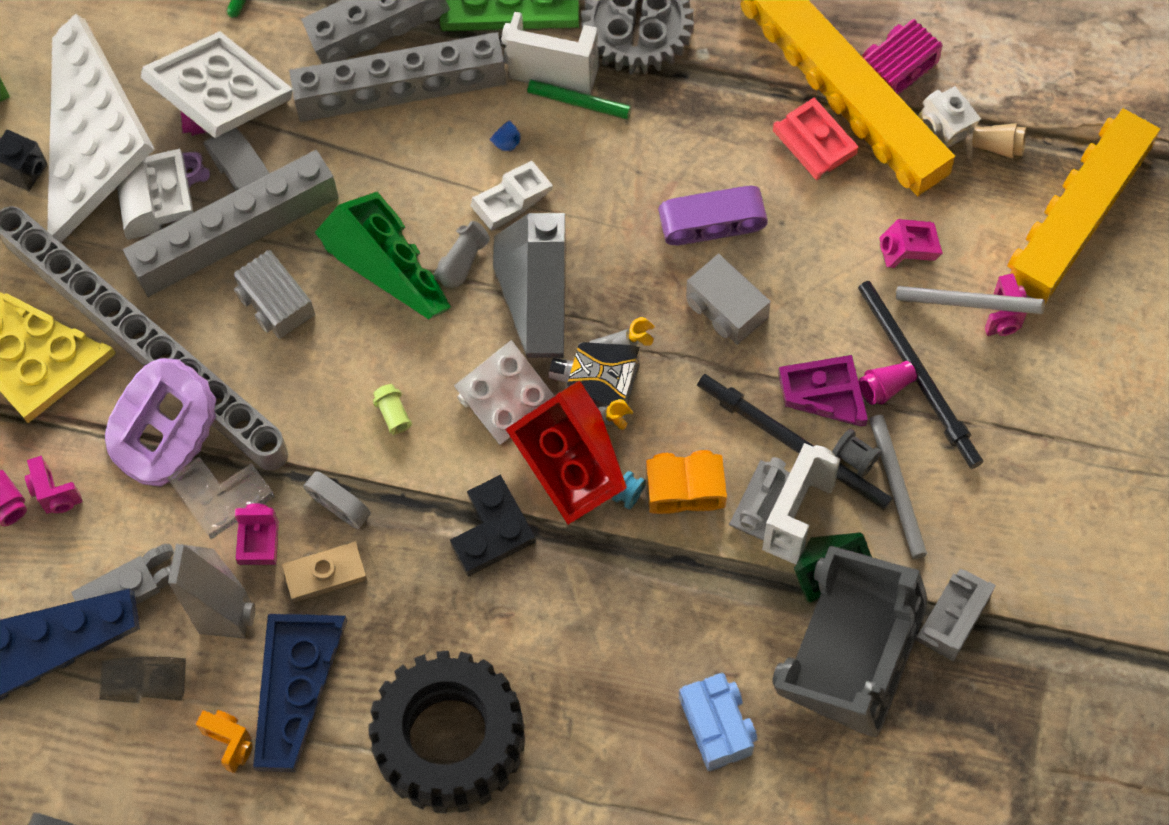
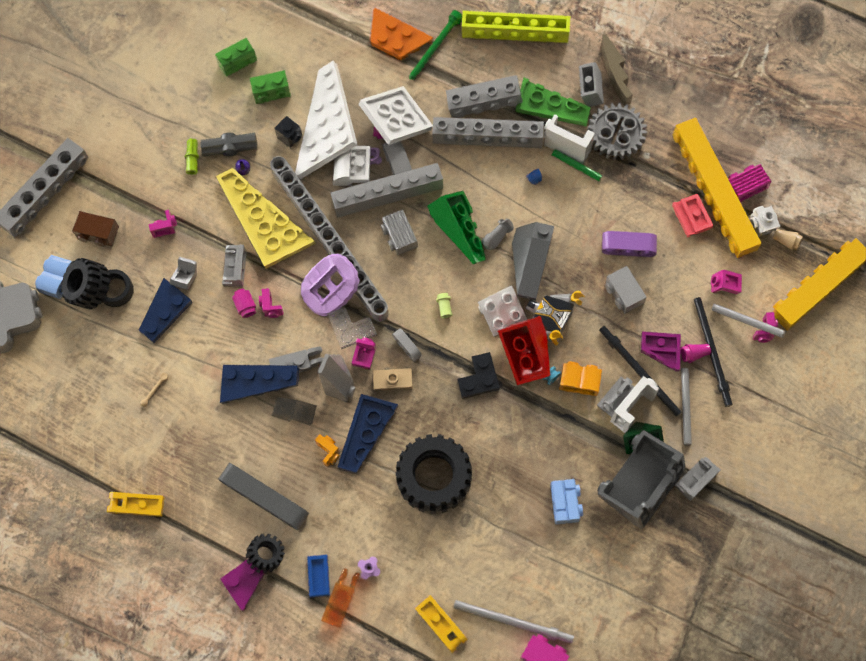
camera: 15 degrees right, 5 degrees up
(512, 197) = (530, 209): white slope -> none
(856, 452) = (669, 384): dark grey bush -> none

